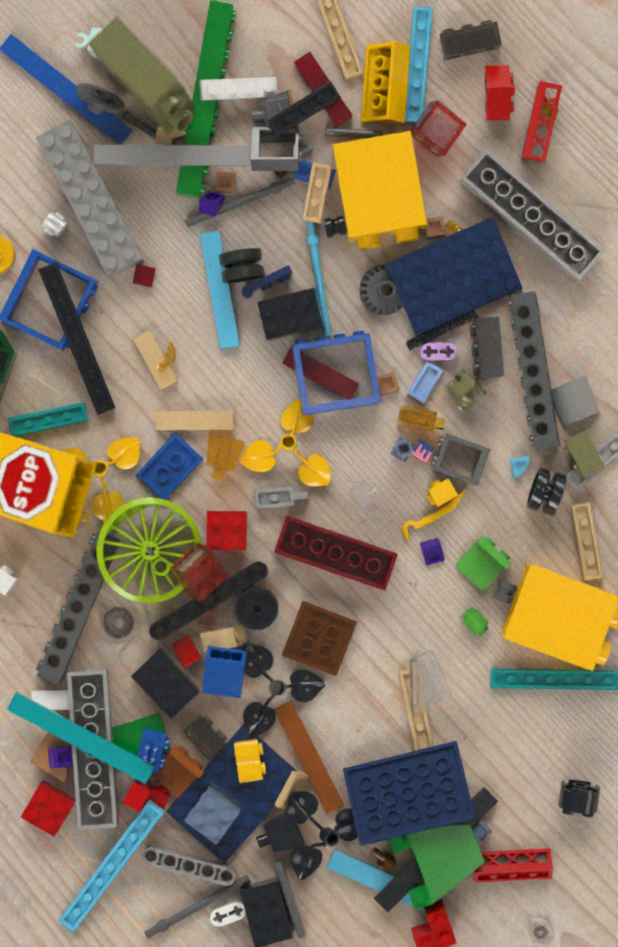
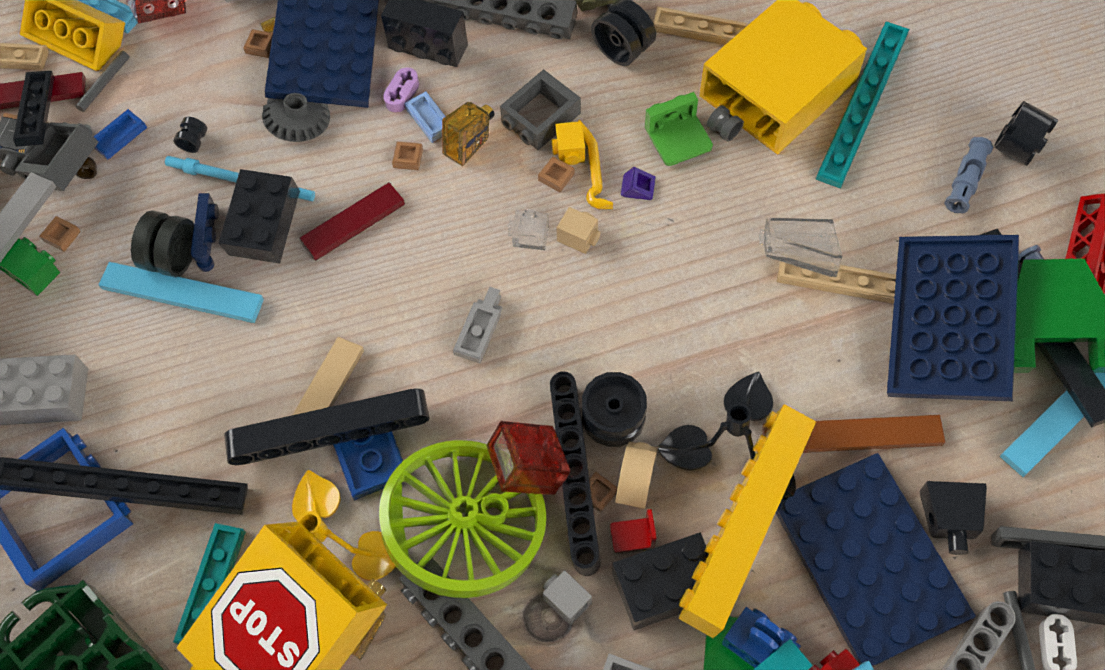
camera: 60 degrees left, 25 degrees down
(131, 629) = (566, 597): none -> light grey brick
(144, 275) = (105, 374): dark red tile -> none
(153, 357) = (218, 406): tan tile -> none
(168, 439) = (326, 427): none -> black beam
(169, 358) = (226, 386): clear yellow piece -> none
(179, 770) = (808, 617): dark orange bracket -> none
(205, 736) = (776, 560): clear smoke brick -> none
(211, 203) = (72, 256): dark purple slope -> none
(212, 815) = (896, 592): sand blue piece -> none
(219, 716) = (746, 522): none -> yellow brick
(223, 454) = (385, 368): clear yellow torso -> none
(224, 671) = (685, 486): blue brick -> none
(226, 530) = (486, 402): red piece -> none
(248, 760) = (830, 506): yellow brick -> none
(260, 456) = (392, 266): yellow plant -> none
(274, 188) = (103, 182): dark grey bar -> none
(294, 783) = (895, 472): tan tile -> none
(300, 808) = (969, 417): black plant -> none
(316, 192) = (138, 135): tan tile -> none
(319, 638) = (691, 353): reddish brown plate -> none
(335, 553) = (585, 284): dark red brick -> none
(338, 405) = (352, 237): blue window -> none
(376, 529) = (578, 230): none -> tan brick
(380, 189) = (175, 66): yellow brick -> none
(385, 861) = (1039, 393): reddish brown plate -> none
(402, 449) = (492, 149): sand blue piece -> none
(416, 492) = (556, 174): none -> medium nougat tile
(423, 450) = (508, 148): tile -> none
(440, 328) = (372, 110): black piece -> none
(461, 389) = (454, 80): olive animal -> none
(475, 621) = (748, 167): bright green brick -> none
(519, 465) = (579, 60): medium azure tile -> none
(530, 770) = (969, 175): none -> sand blue piece

